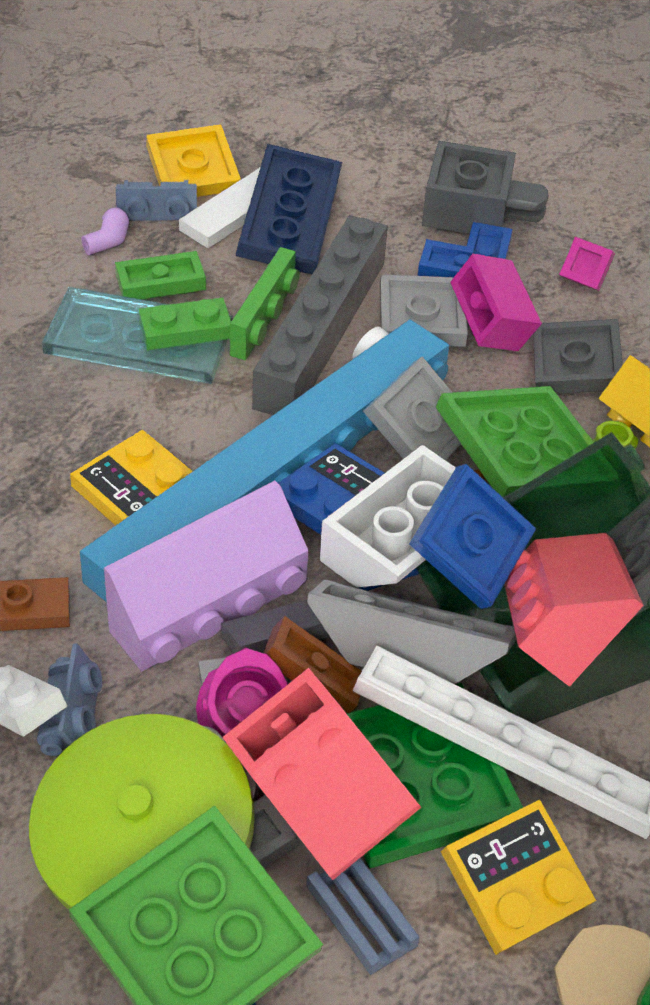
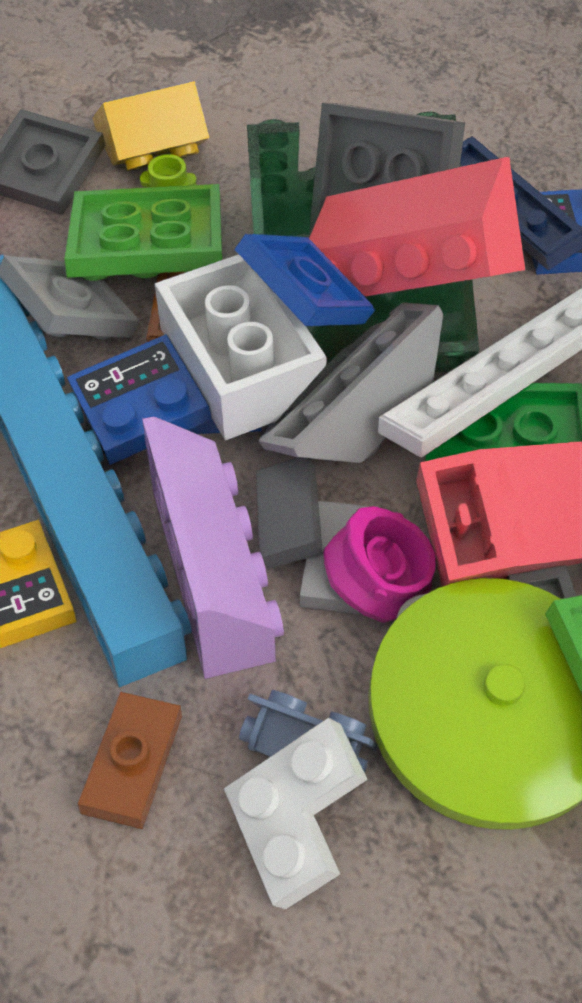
camera: 65 degrees left, 5 degrees up
(298, 650) = (360, 486): dark orange plate -> none

